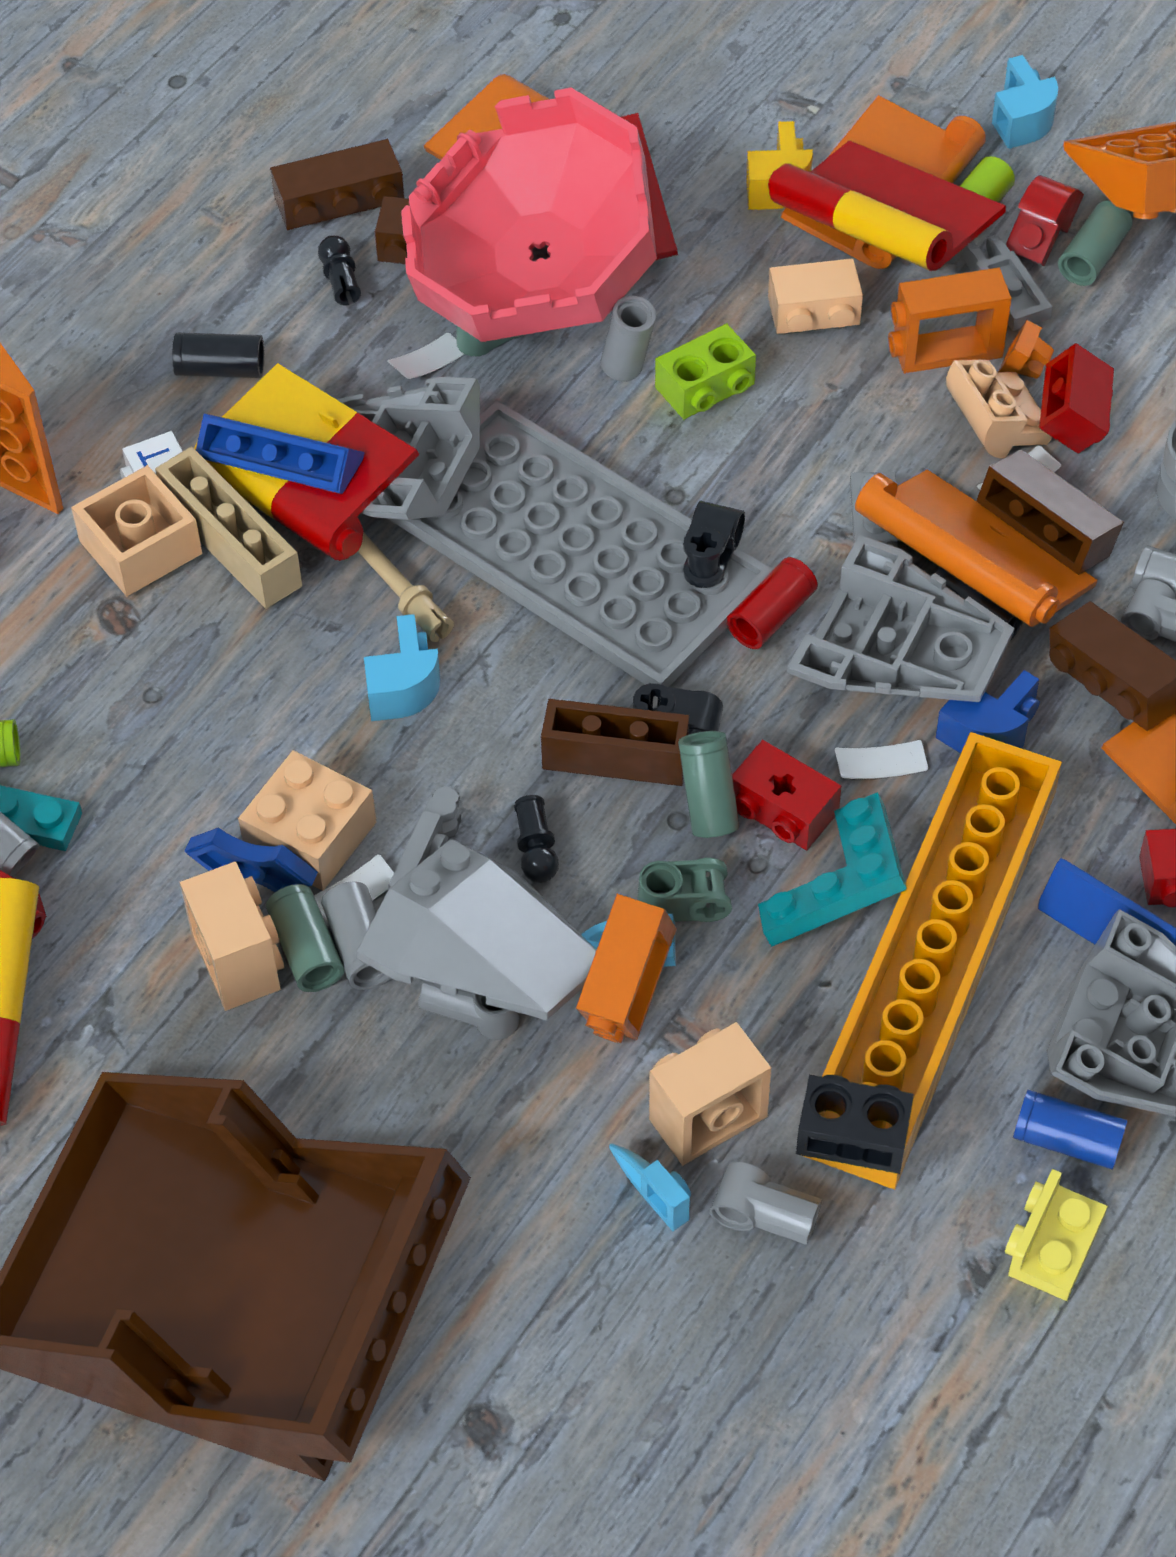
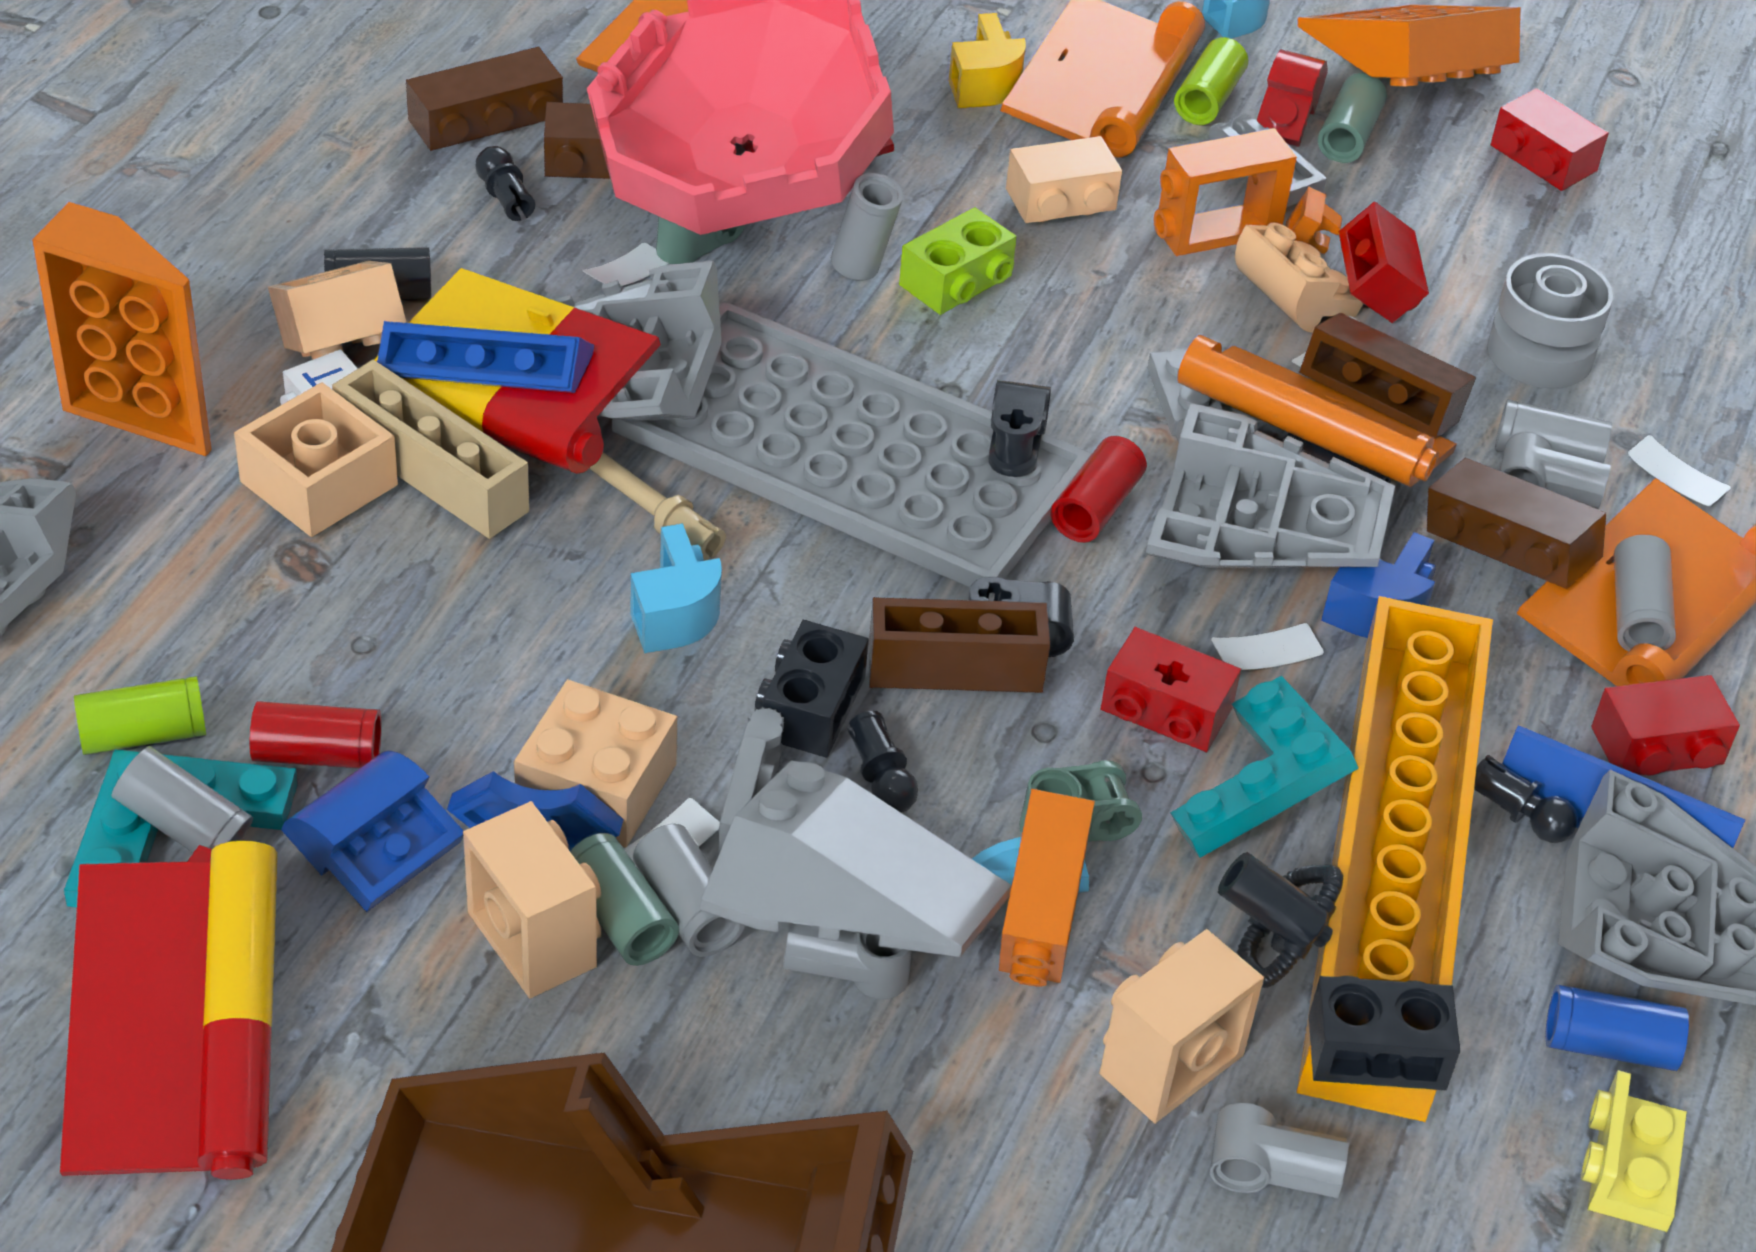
camera: 15 degrees left, 10 degrees down
(98, 776) = (314, 734): none -> red pin
(129, 861) = (375, 828): none -> blue brick
(174, 391) = (337, 308): none -> light nougat brick
(500, 770) = (815, 685): none -> black brick
(662, 1190) = (1135, 1145): medium azure plate -> none
(708, 784) = (1085, 678): sand green pin -> none
(807, 1007) = (1283, 908): none -> black piece
(886, 204) = (1120, 84): red door -> none
(1074, 938) = (1550, 817): none -> black pin

